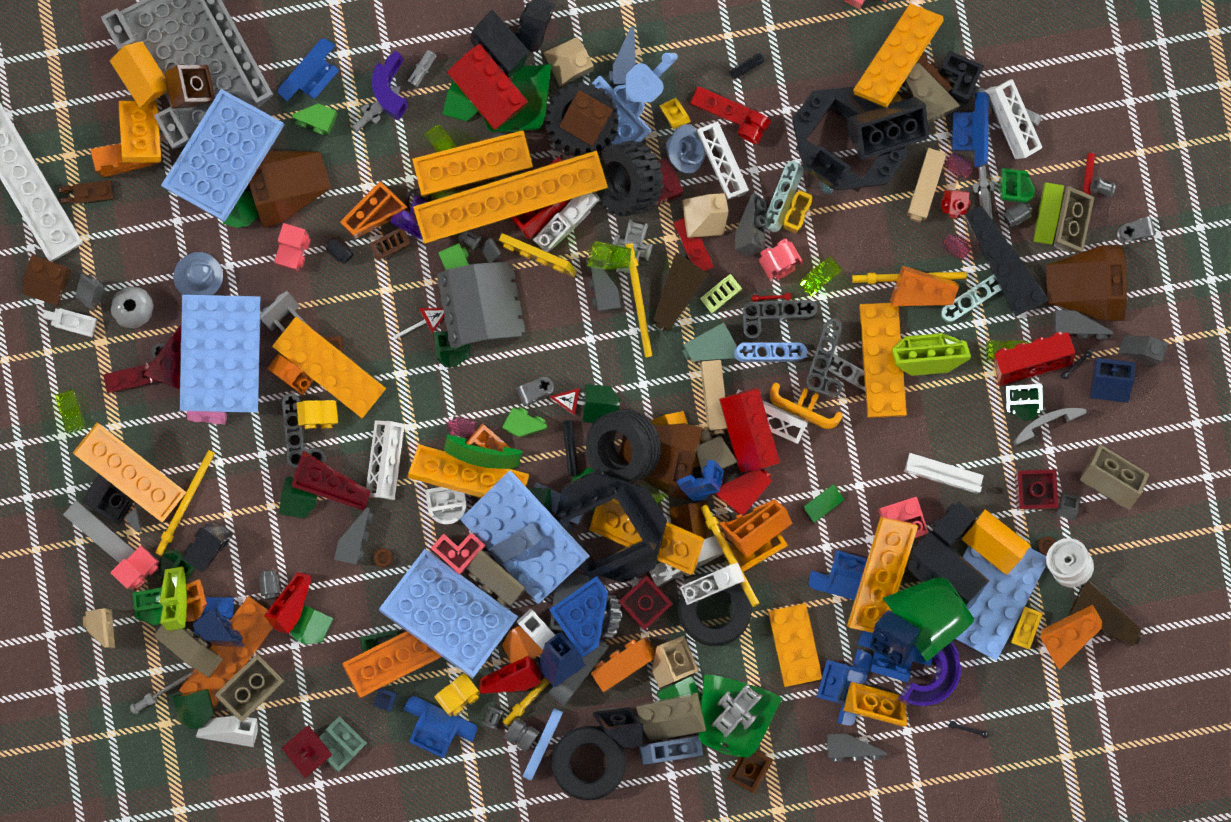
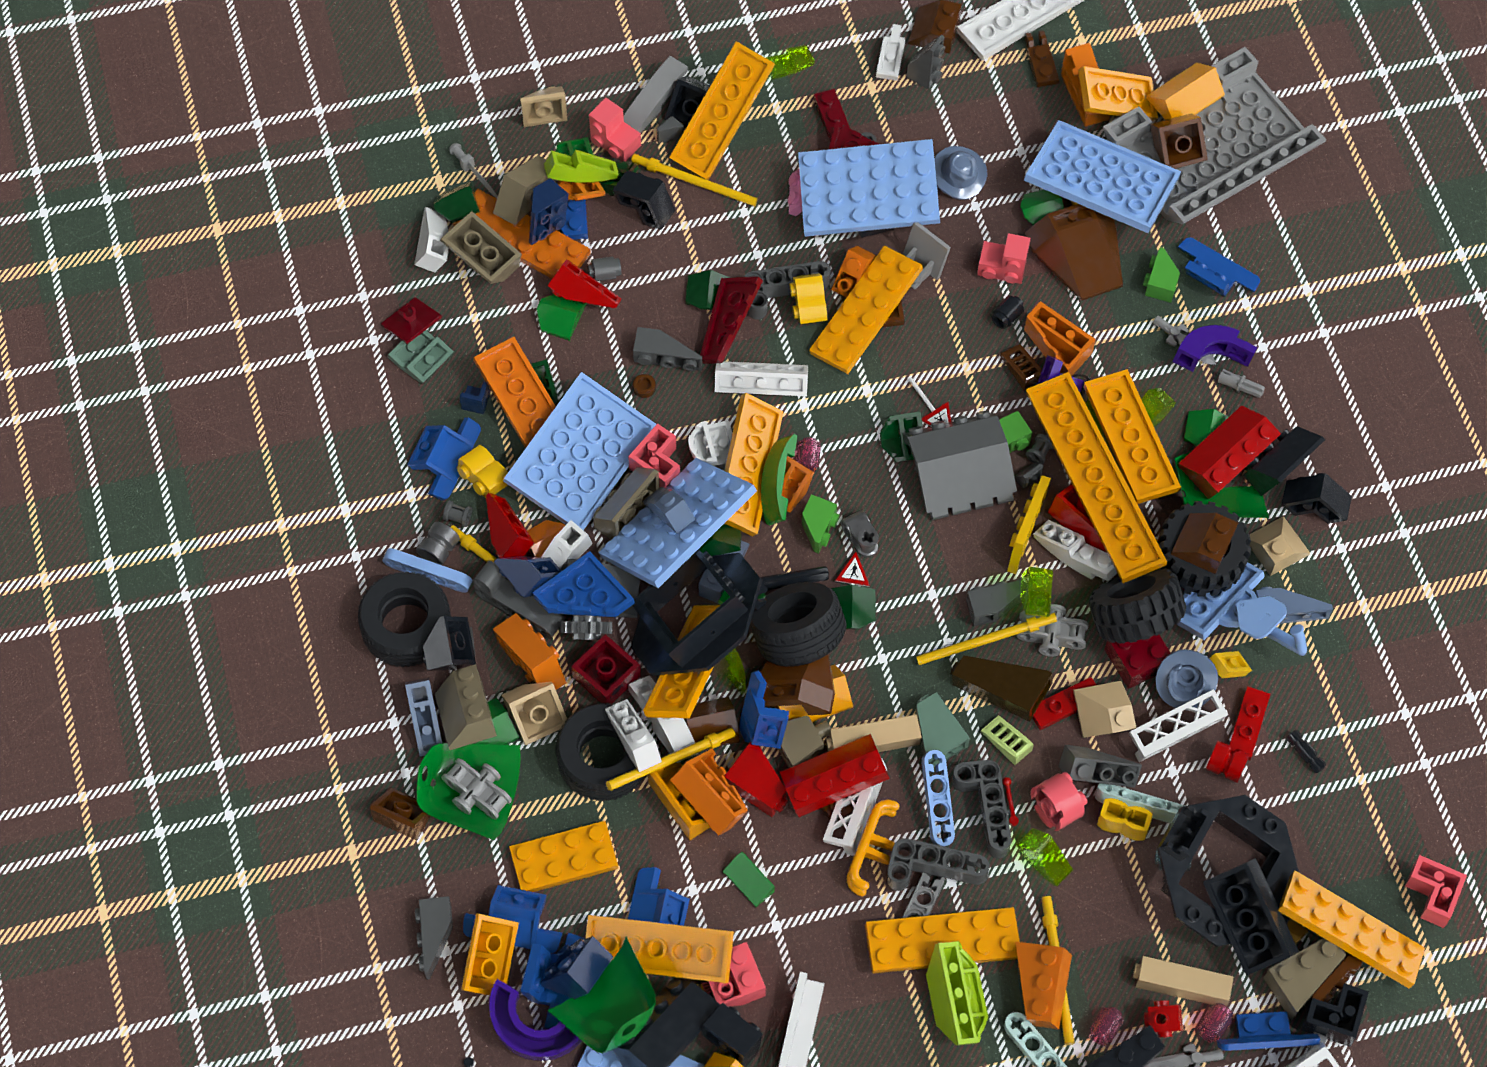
camera: 85 degrees right, 20 degrees down
(139, 315) = (914, 107): light grey piece -> none

